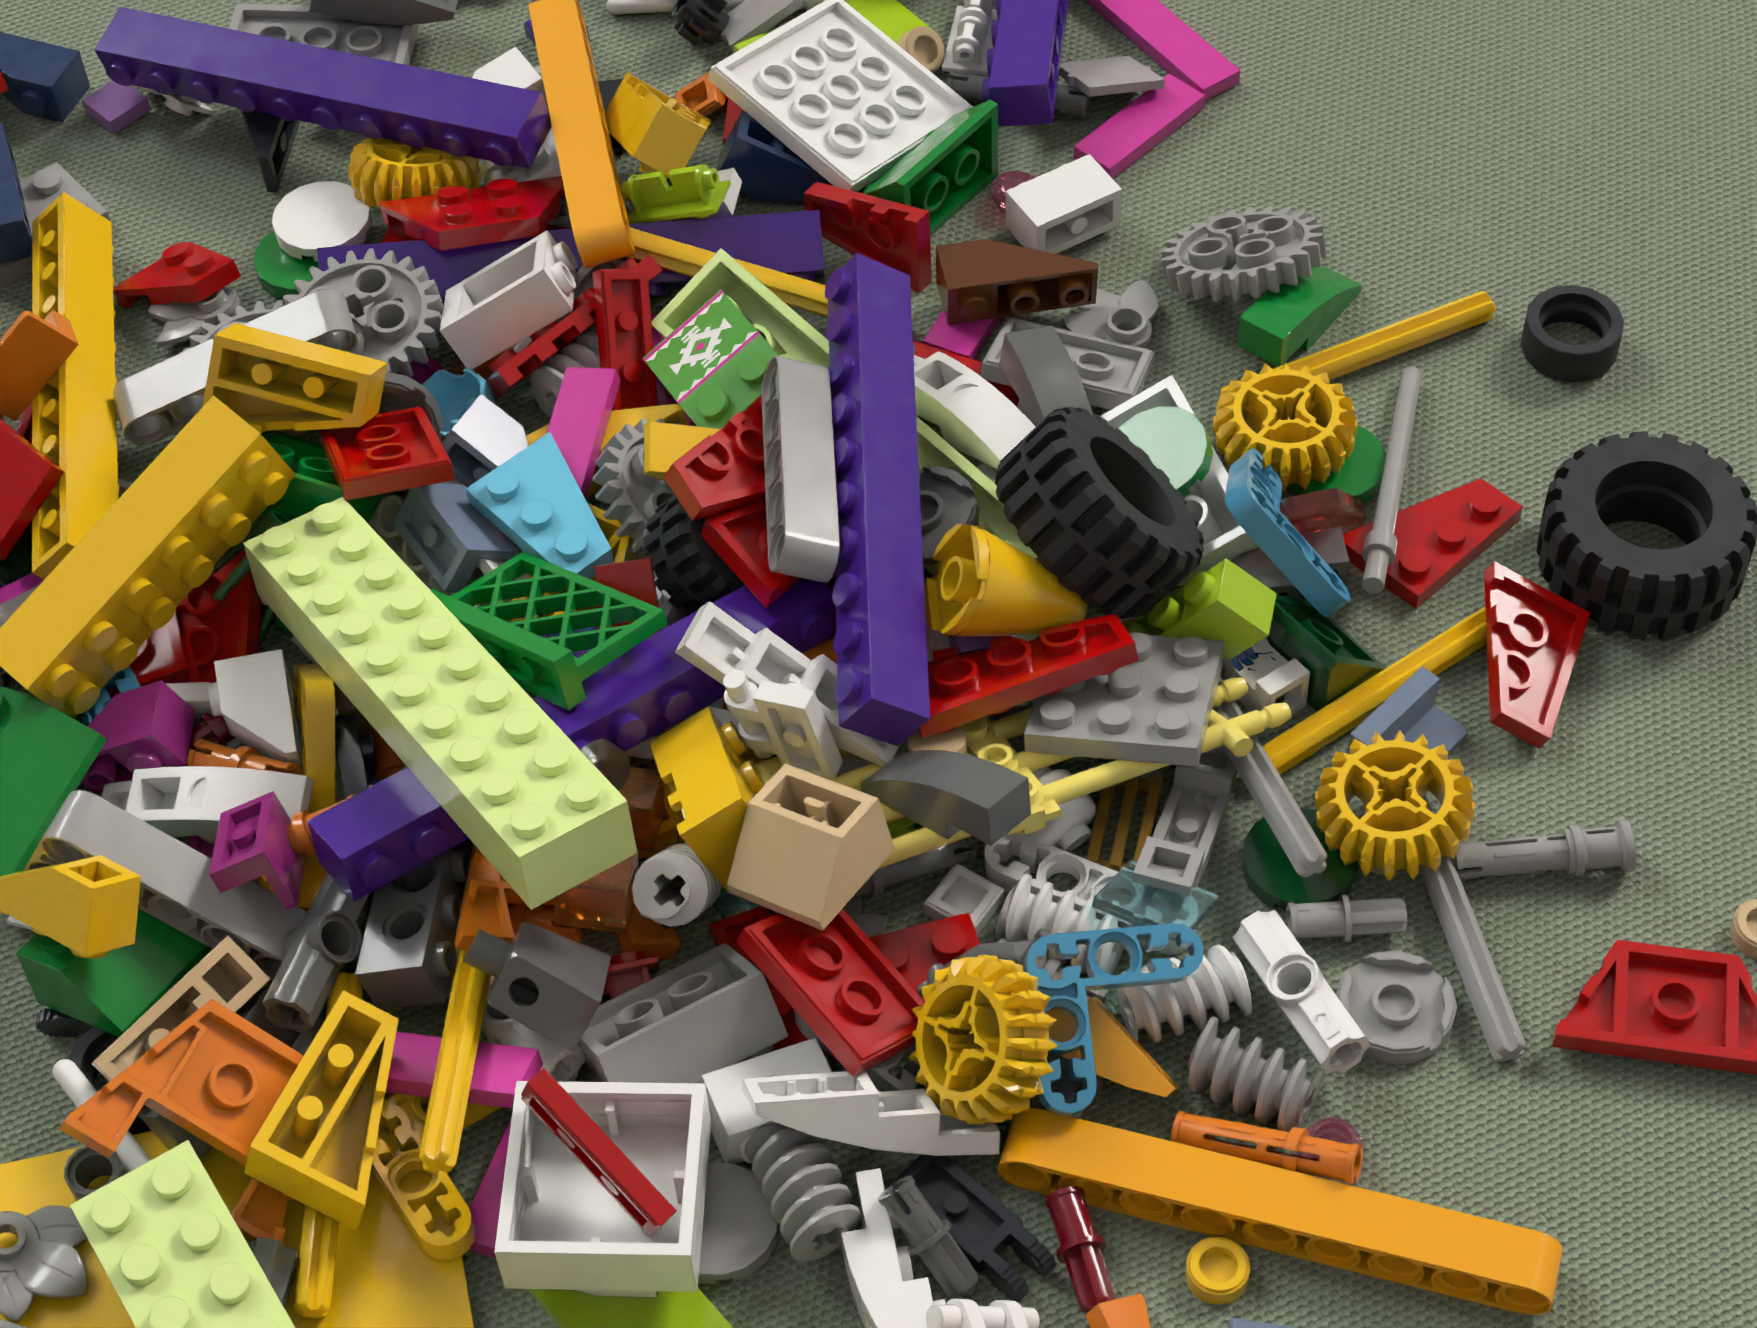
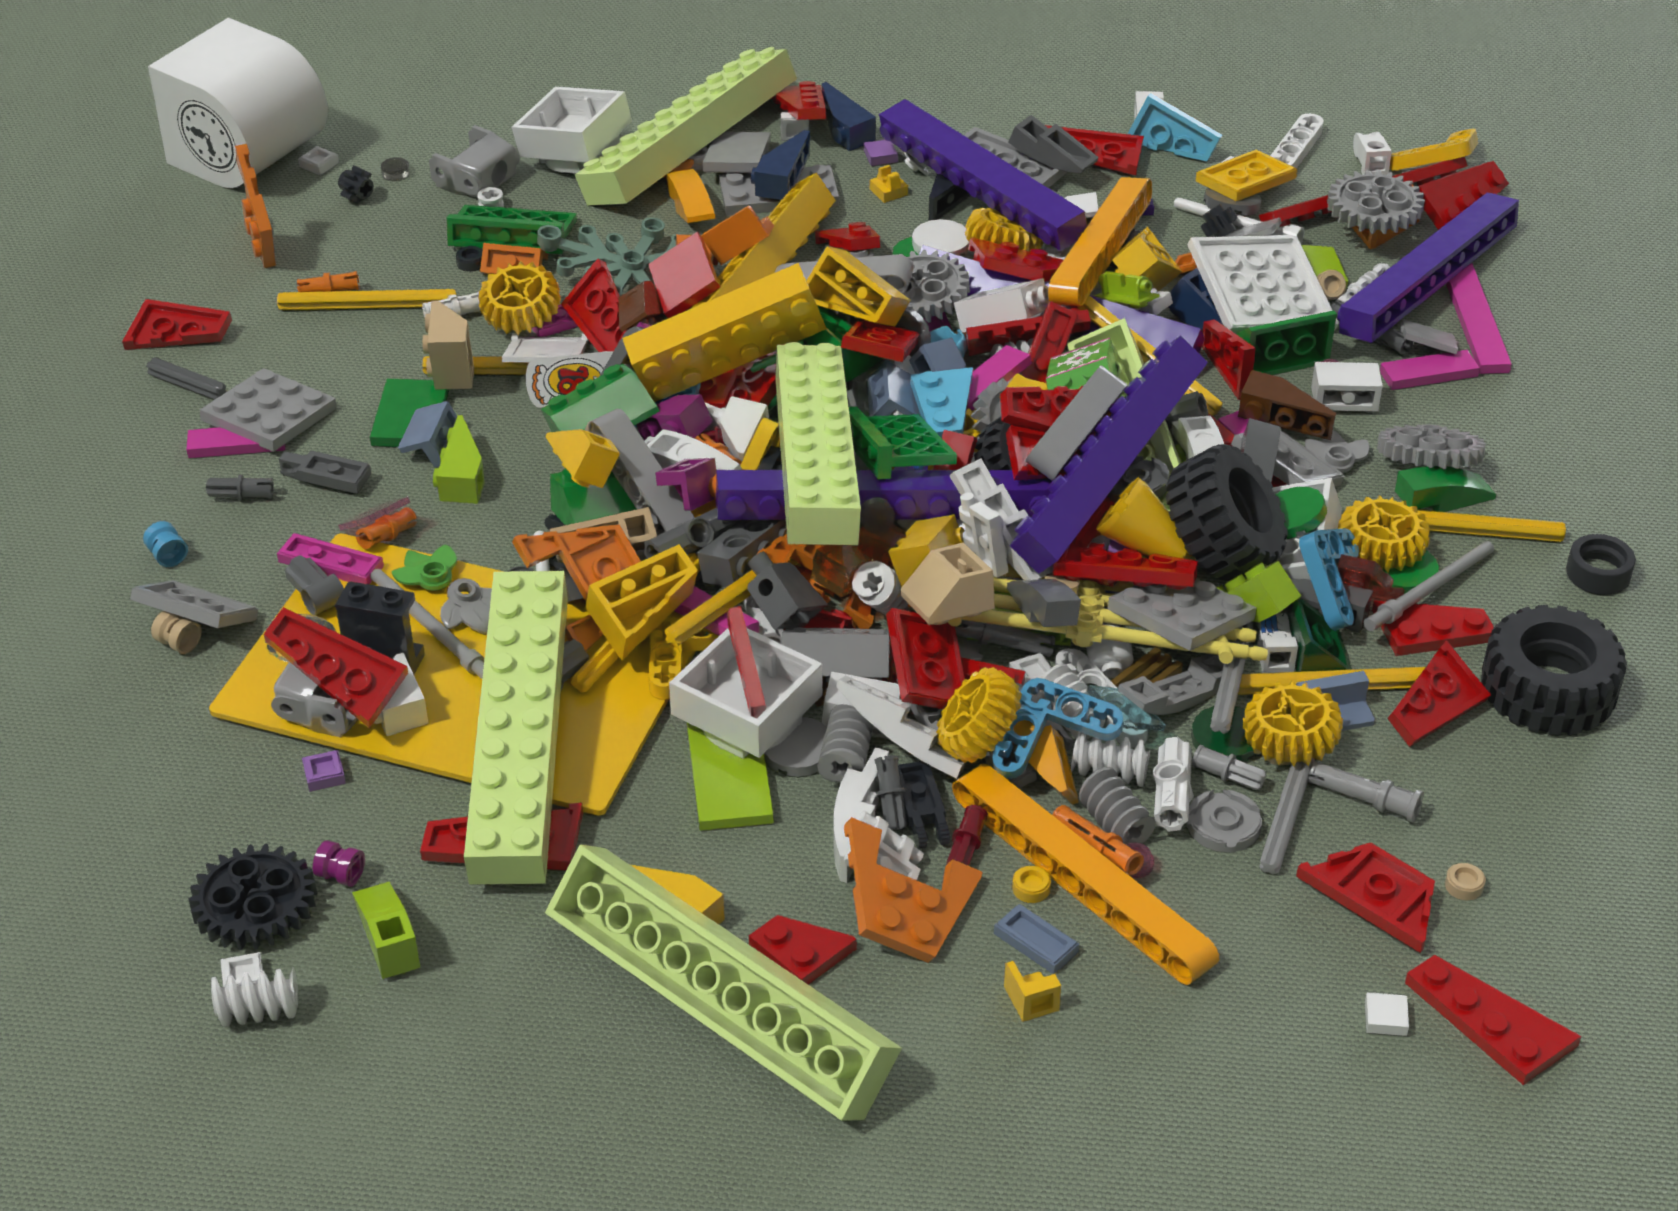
camera: 30 degrees right, 10 degrees down
(168, 158) = (888, 185): none -> yellow tile

